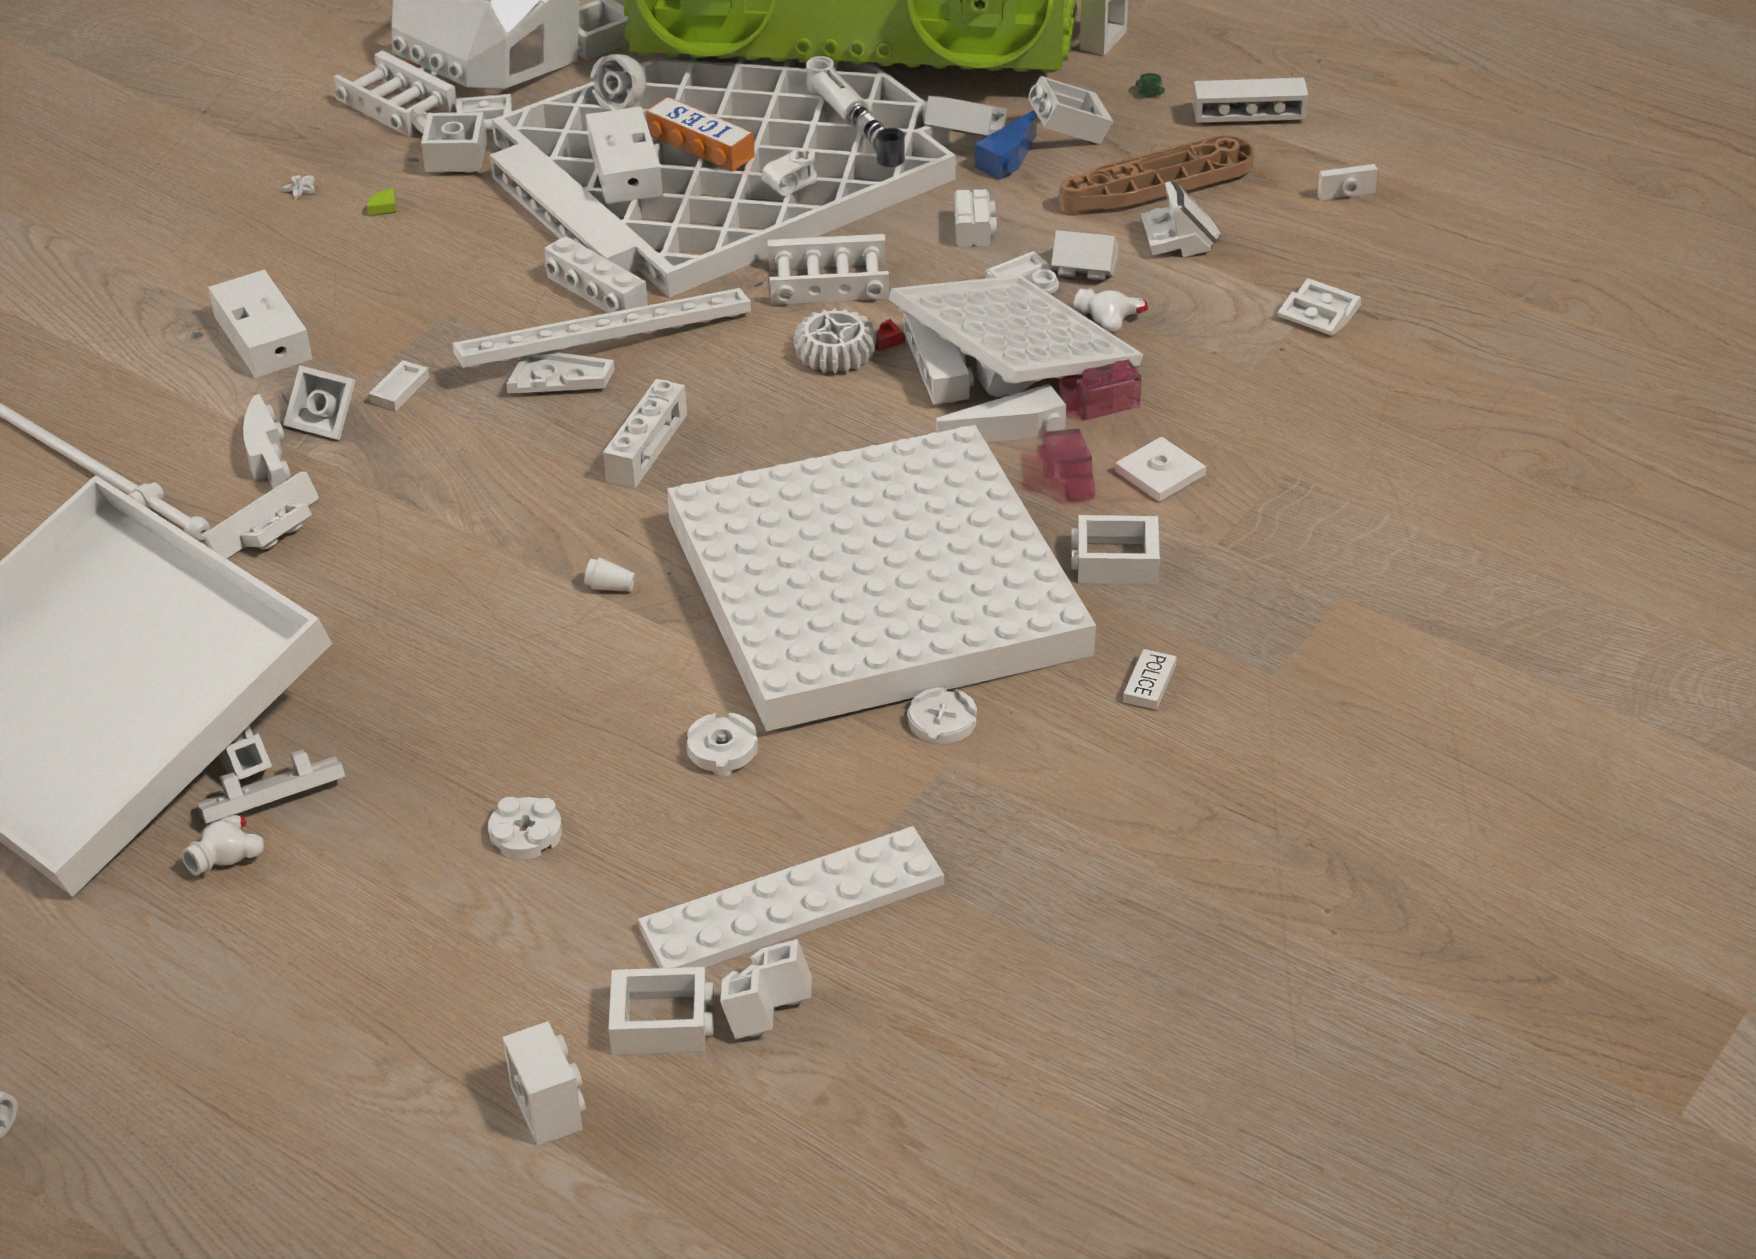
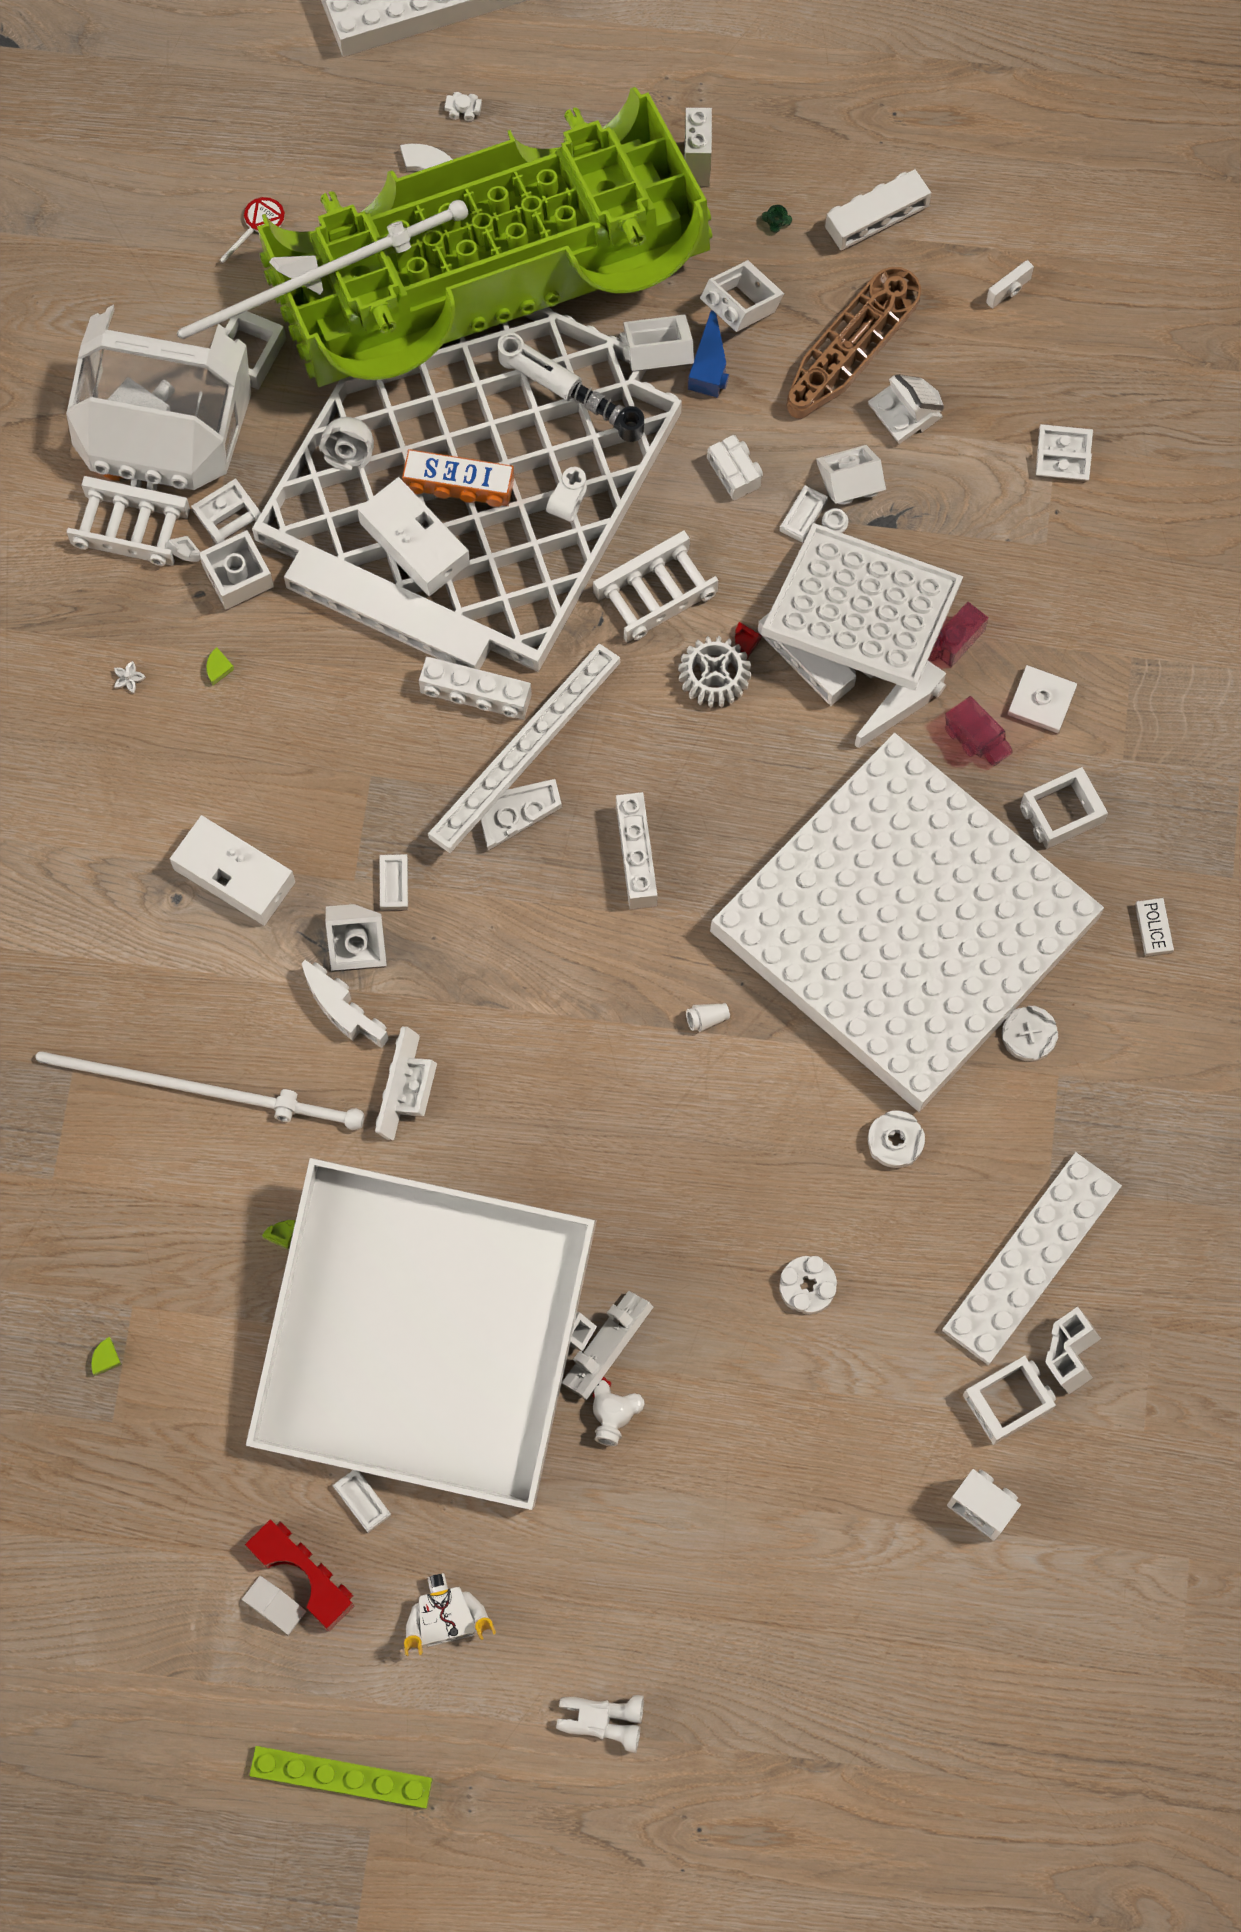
camera: 30 degrees left, 30 degrees up
(1108, 307) = (906, 532): white animal -> none

